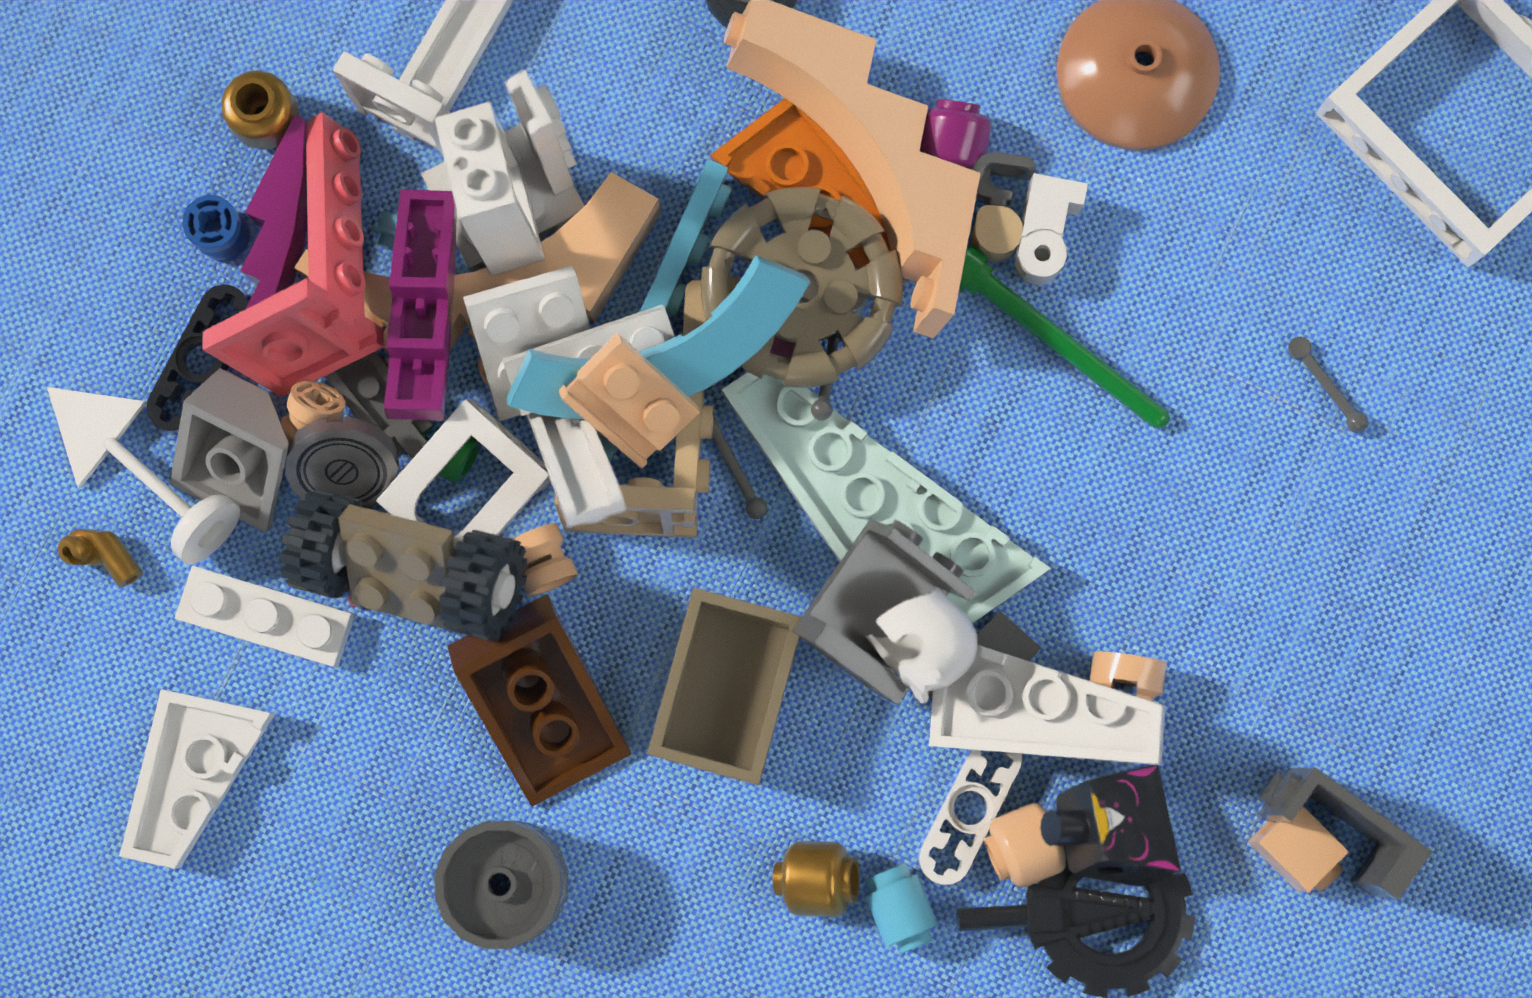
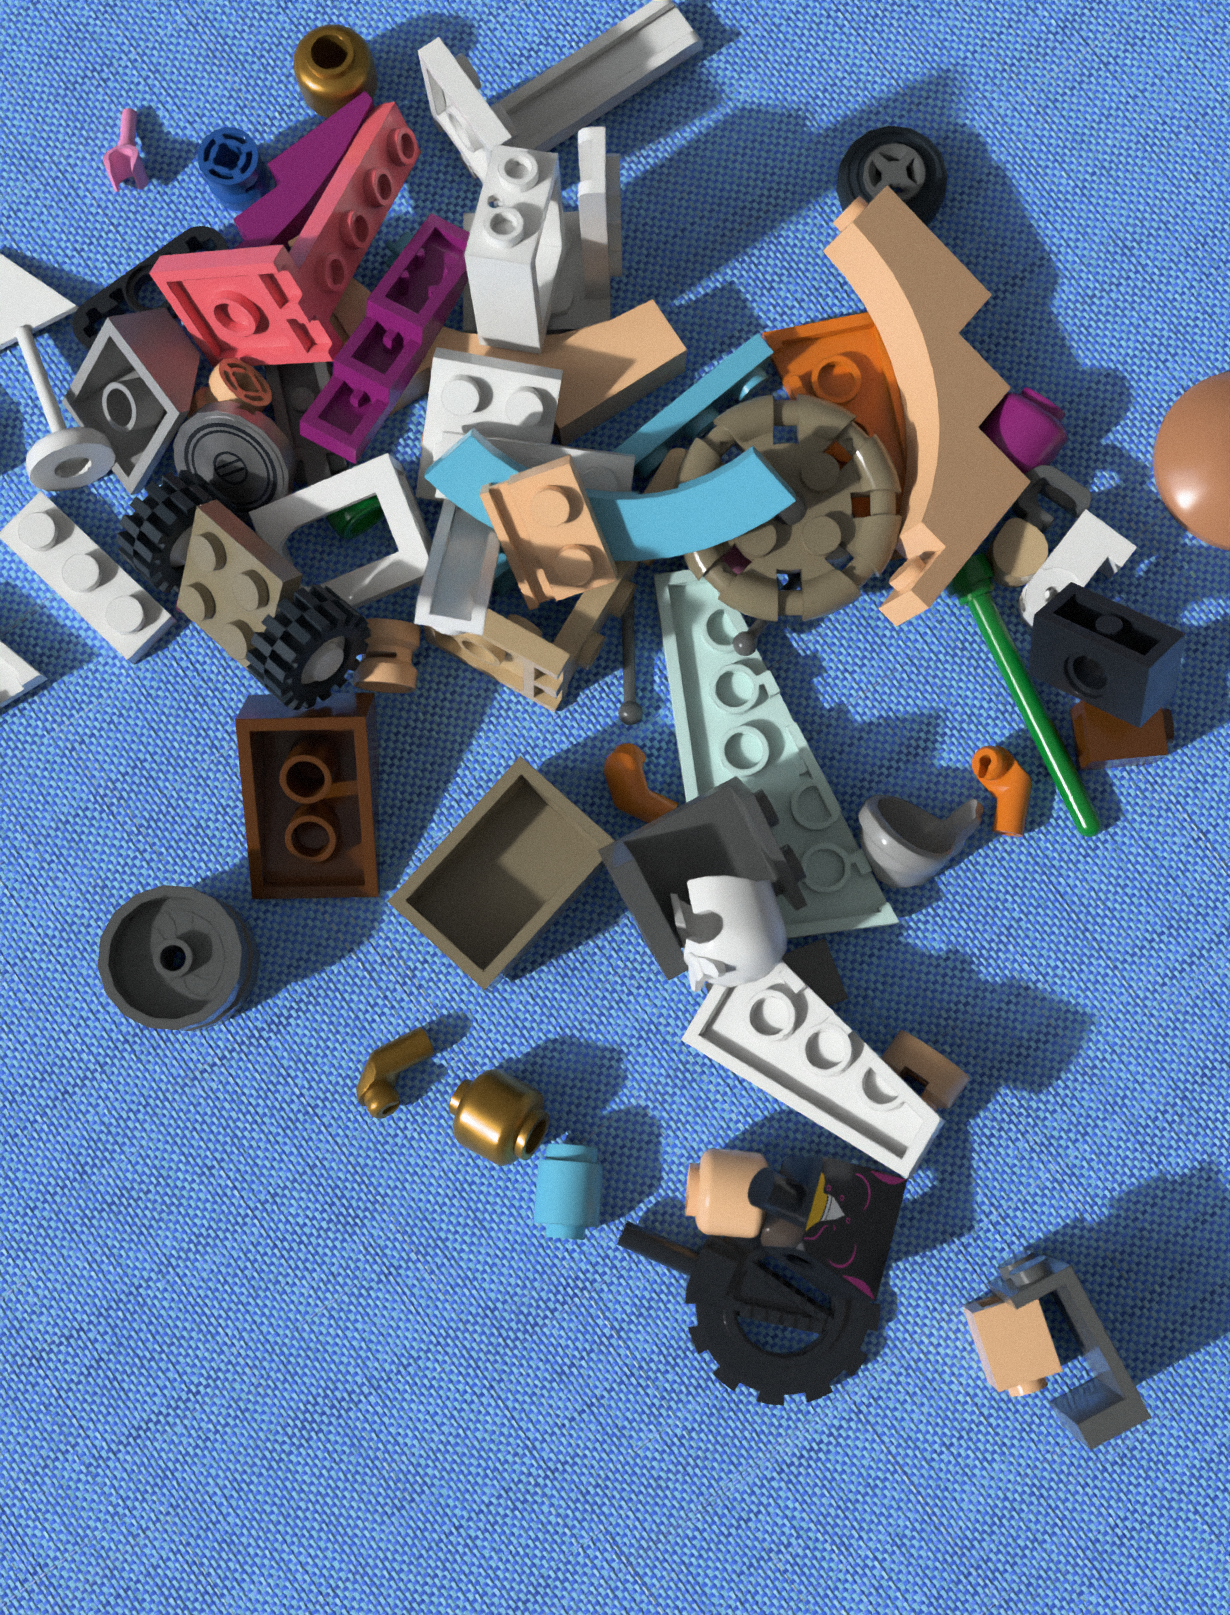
camera: 30 degrees right, 0 degrees up
(120, 261) = (124, 159): none -> bright pink hand
(706, 886) = (383, 1069): none -> pearl gold arm
(786, 566) = (629, 787): none -> orange arm
(962, 851) = (644, 1140): white beam -> none
(1028, 502) = (909, 843): none -> light grey hat
(1081, 418) = (1007, 784): none -> orange arm
(1106, 282) = (1105, 654): none -> black brick
(1146, 333) = (1109, 742): none -> reddish brown brick

